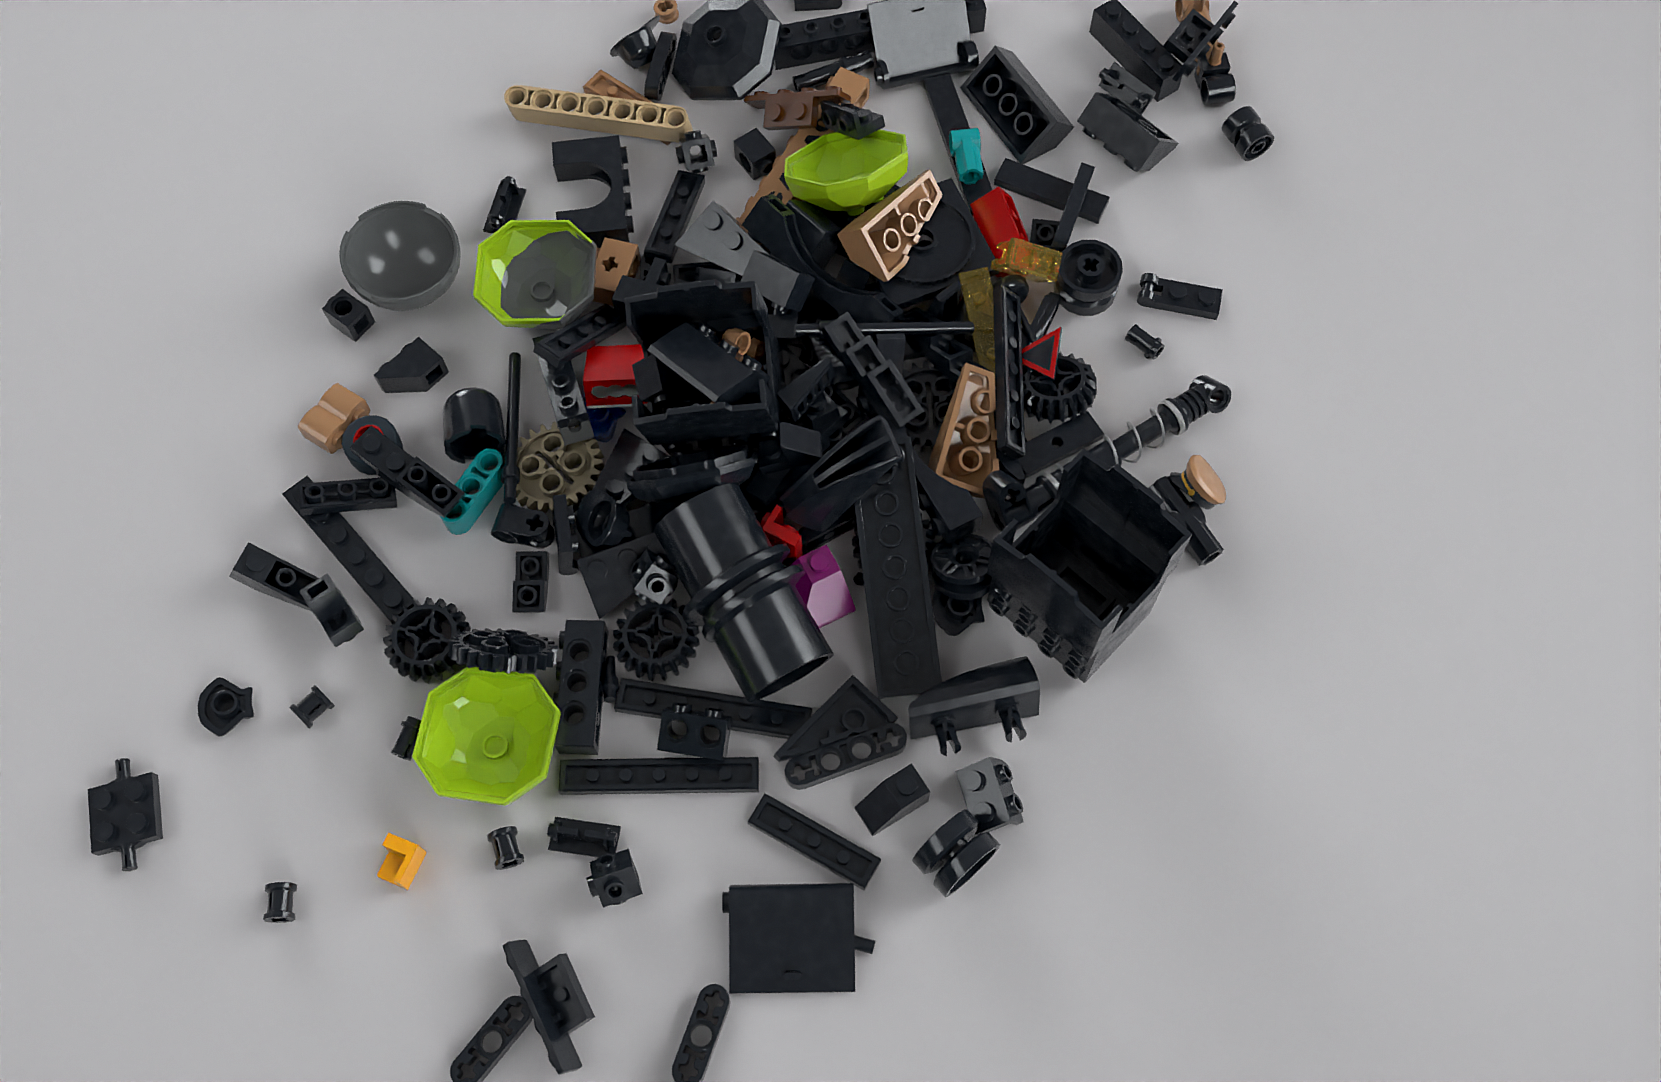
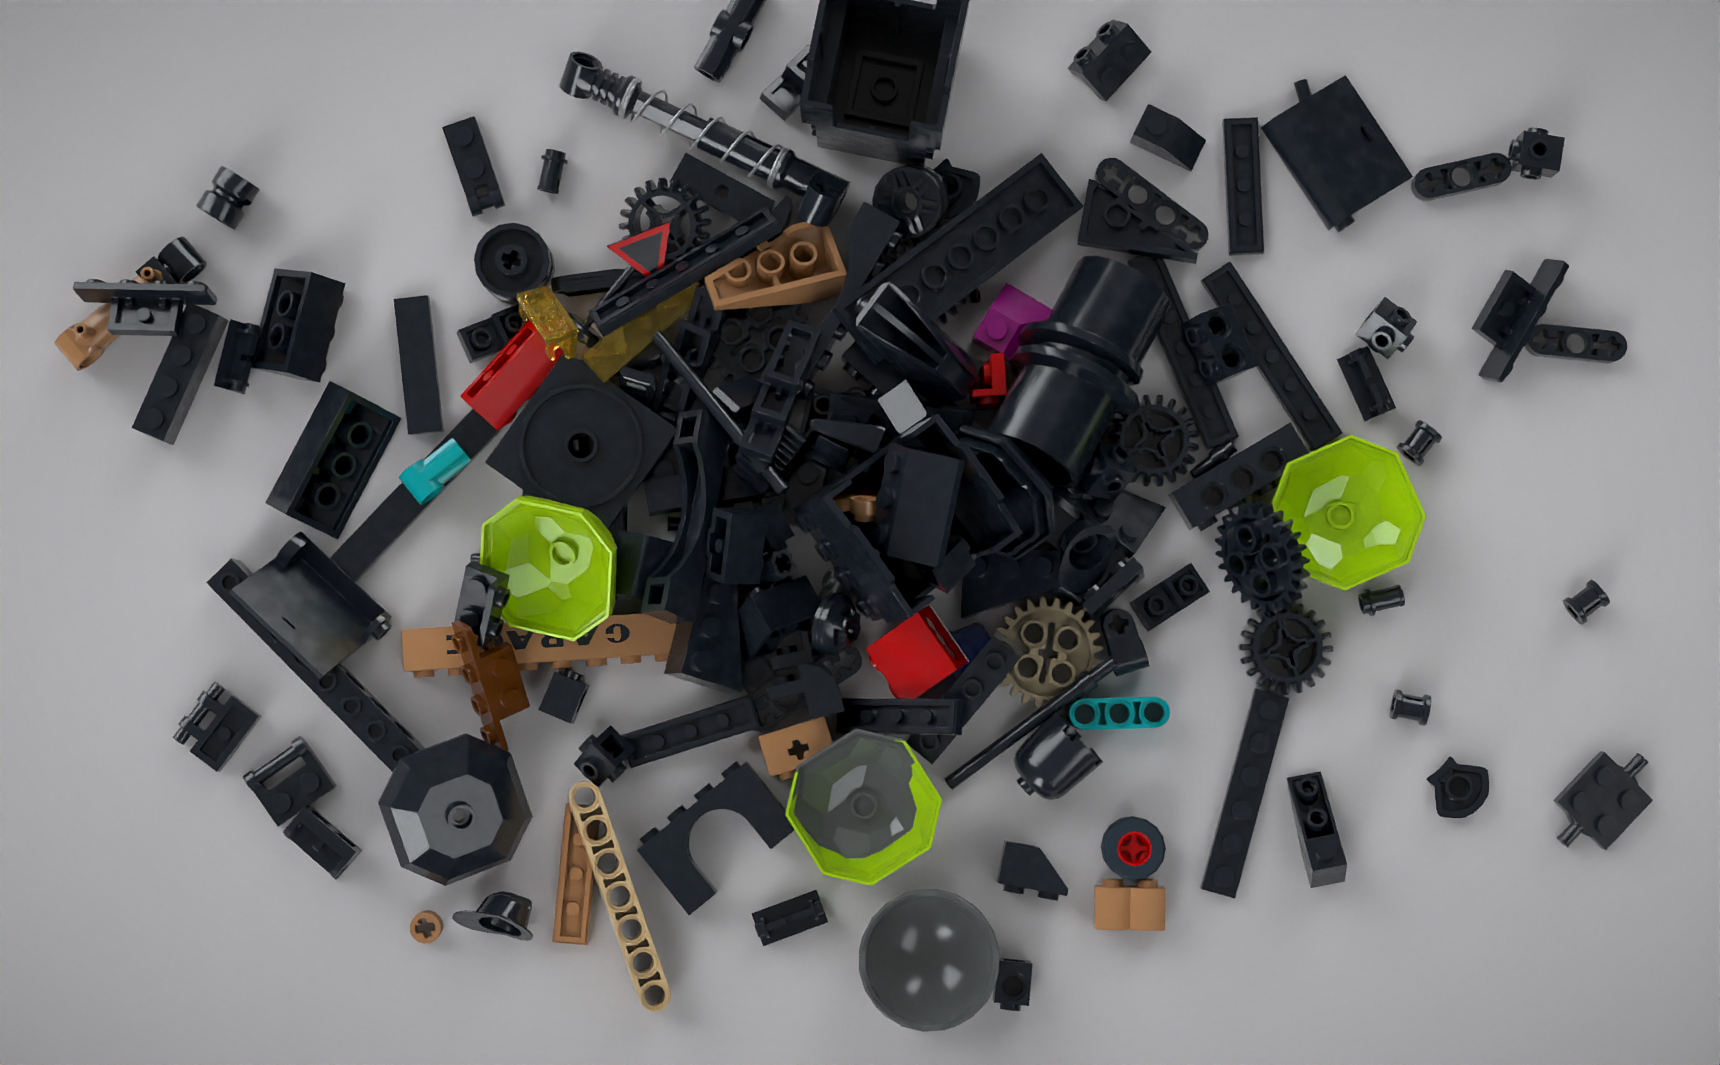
camera: 120 degrees left, 20 degrees up
(332, 610) = (1317, 750): black brick -> none
(345, 496) = (1214, 845): black tile -> none
(401, 861) = (1487, 526): light orange panel -> none
(407, 473) = (1149, 776): black slope -> none
(660, 66) = (509, 877): black beam -> none
(821, 75) = (402, 684): black pin -> none
(886, 232) = (608, 481): medium nougat wedge -> none
(951, 848) = (1187, 51): black wheel -> none
(976, 699) = (1017, 107): black piece -> none
(1072, 207) = (442, 322): black beam -> none
(1200, 483) = (687, 34): medium nougat piece -> none

